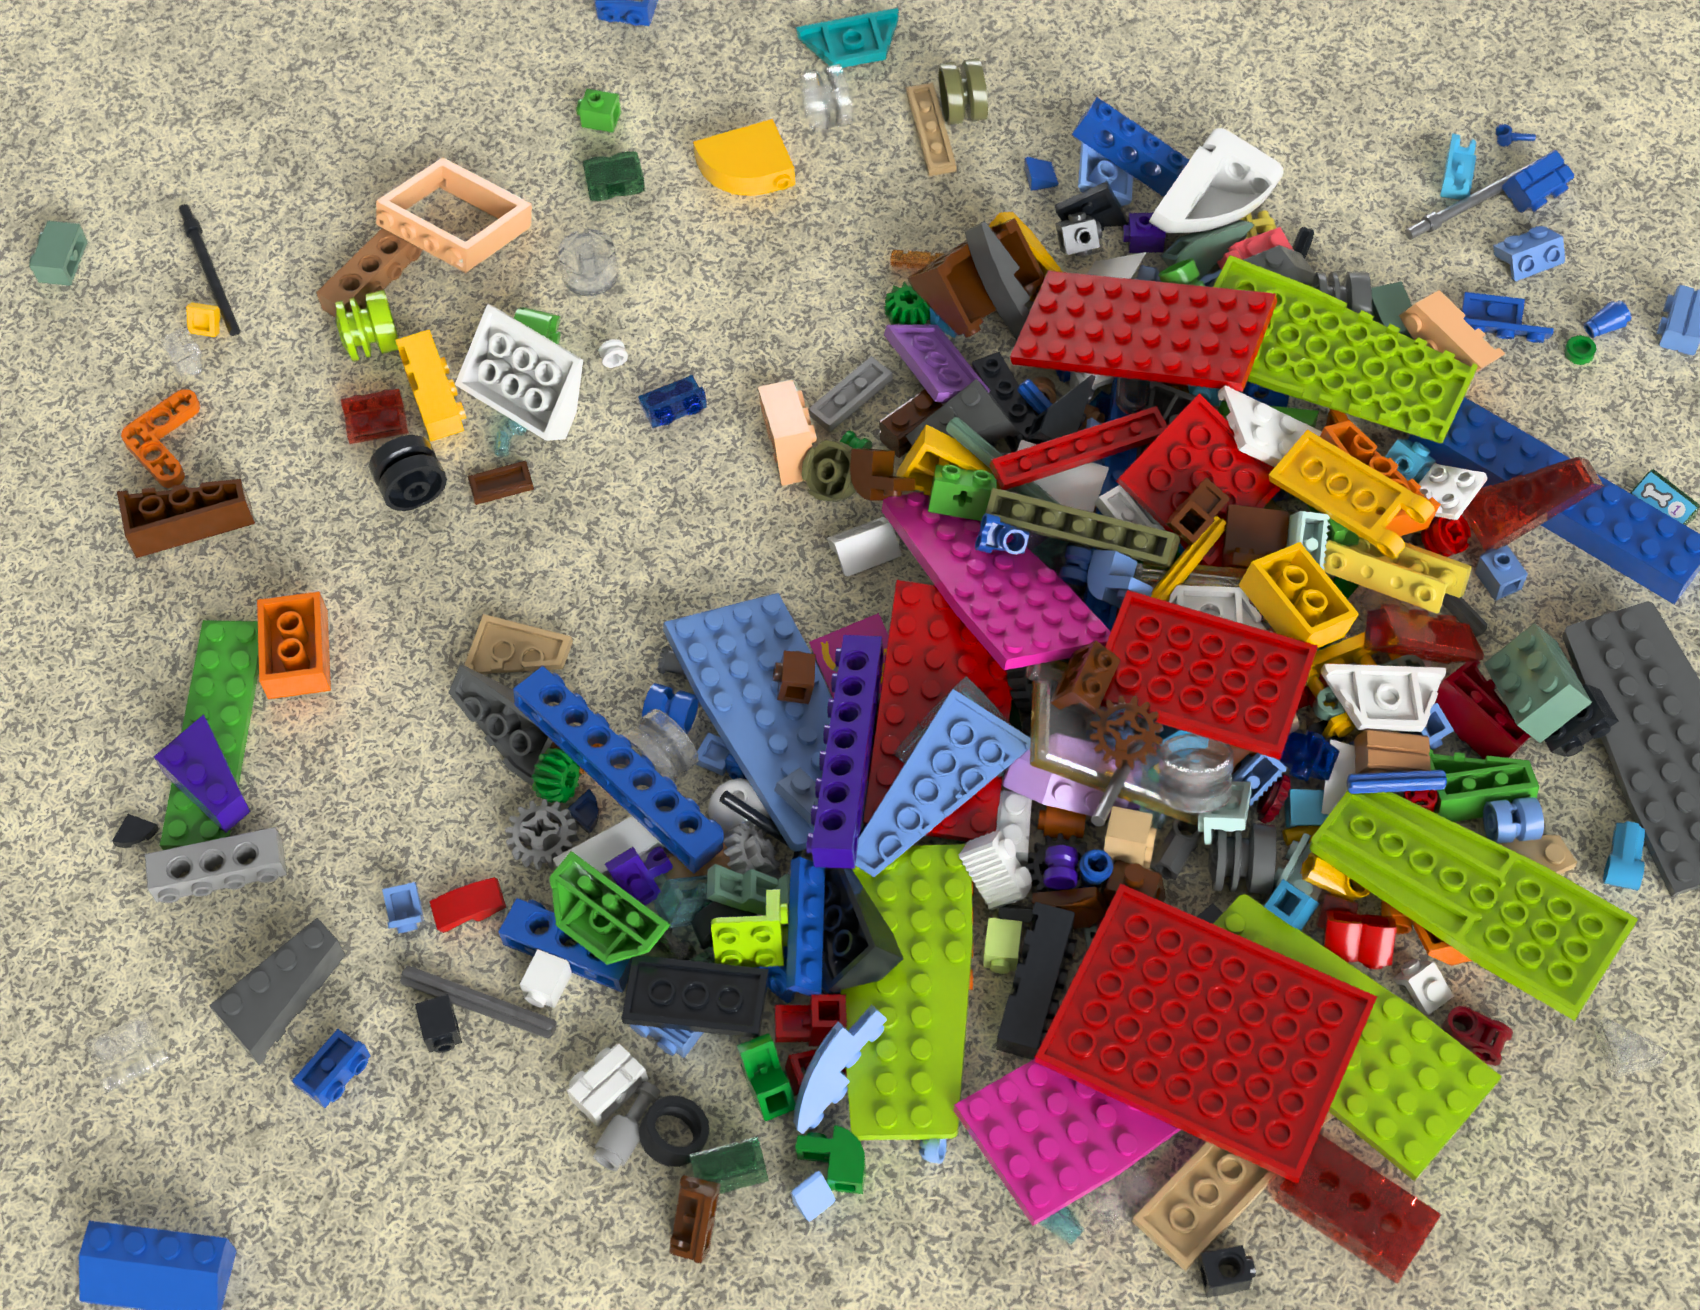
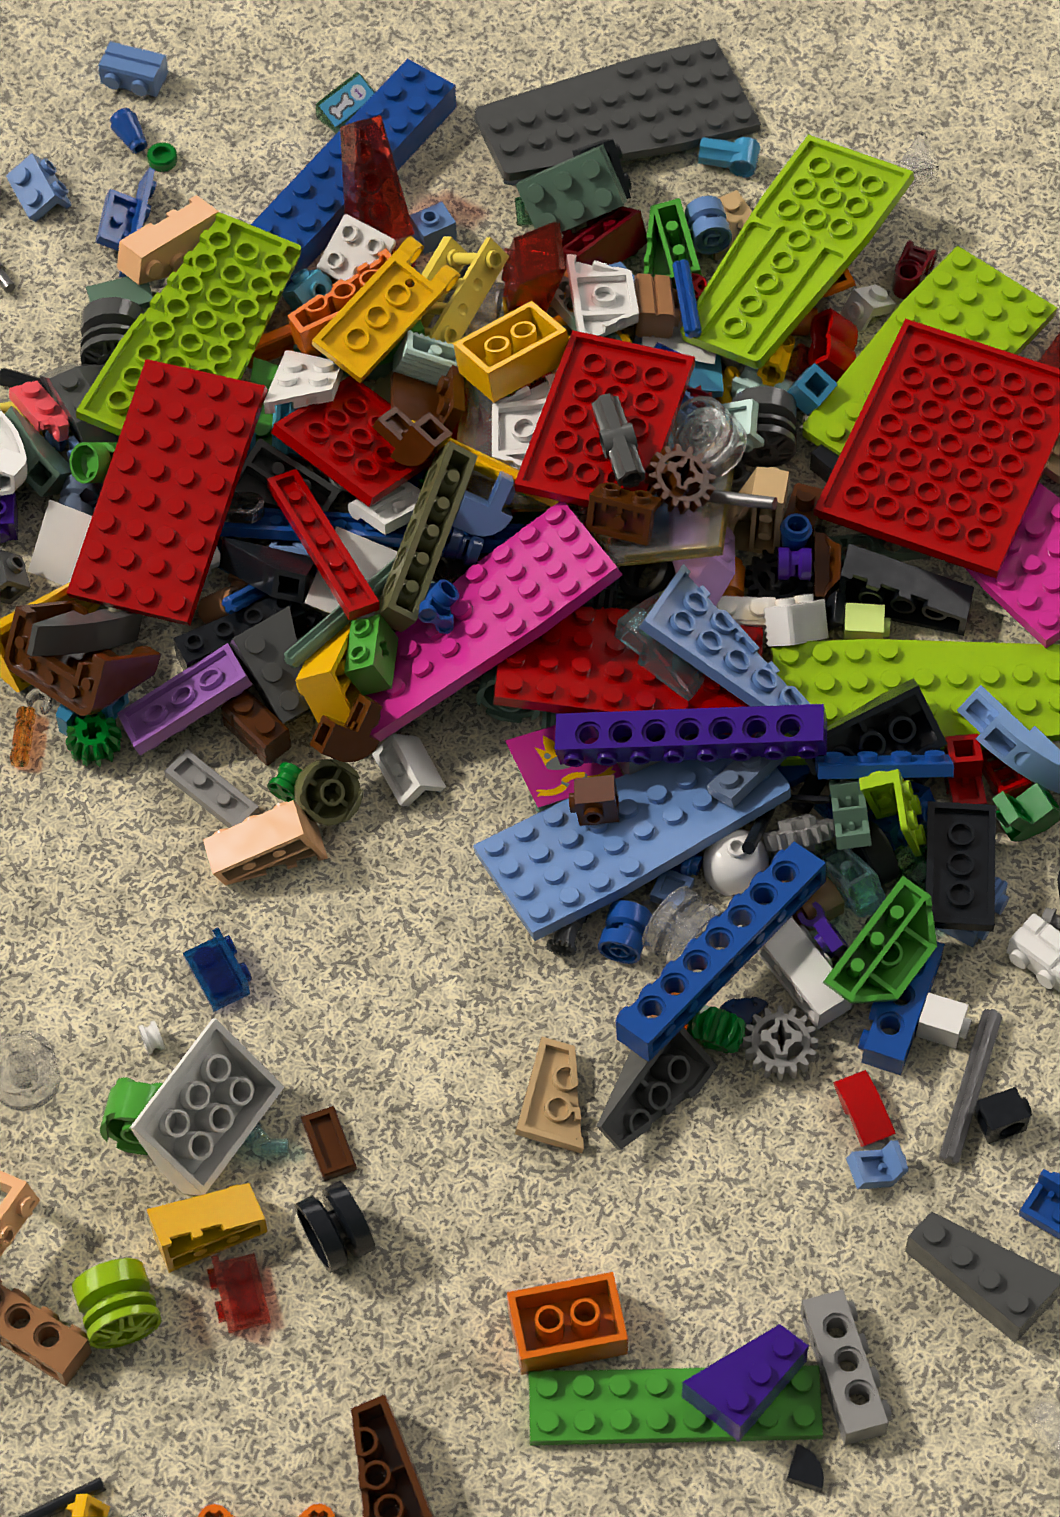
camera: 95 degrees left, 0 degrees up
(1166, 671) = (618, 441): none -> dark grey piece

